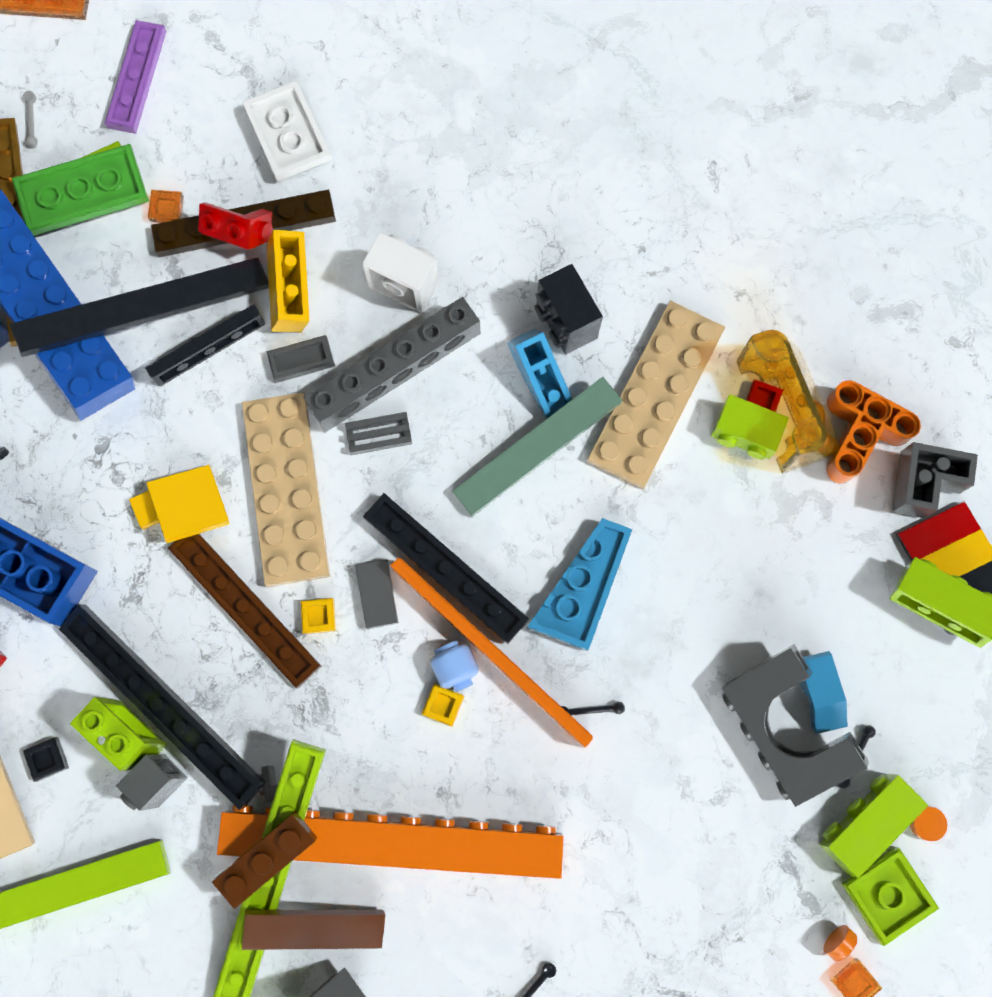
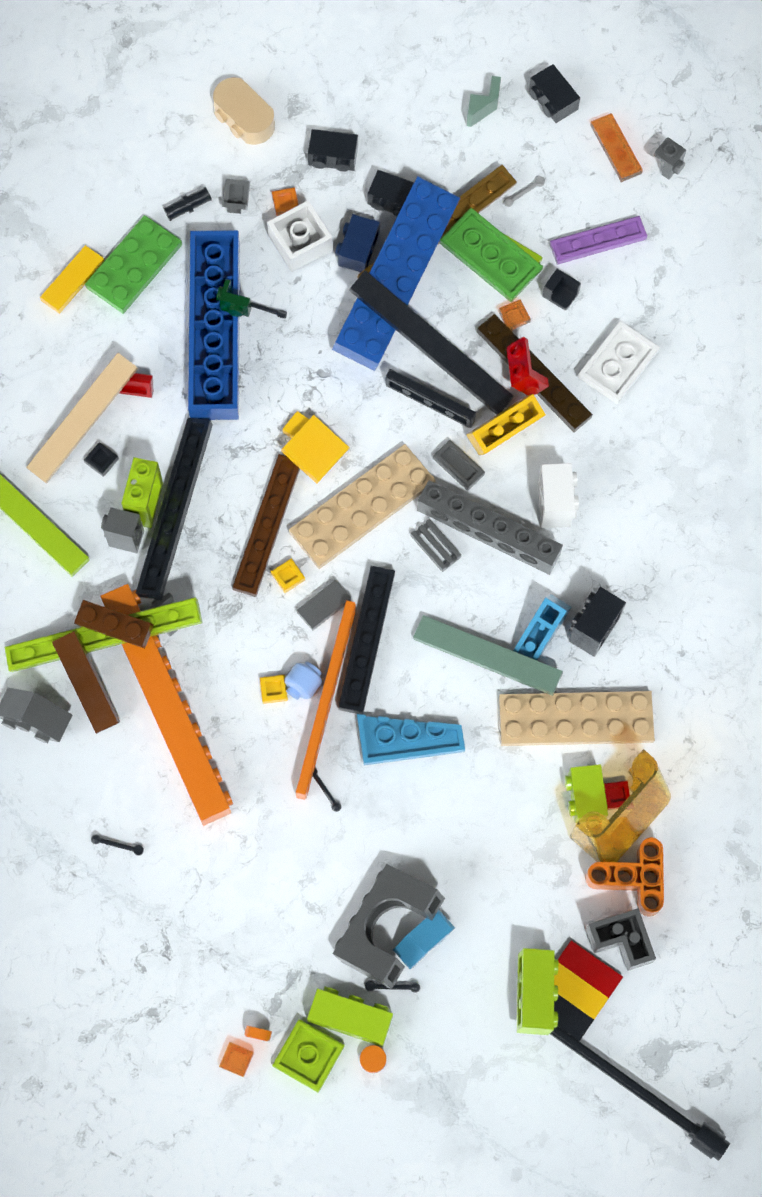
camera: 60 degrees right, 5 degrees down
(168, 141) = (561, 289): none -> black panel

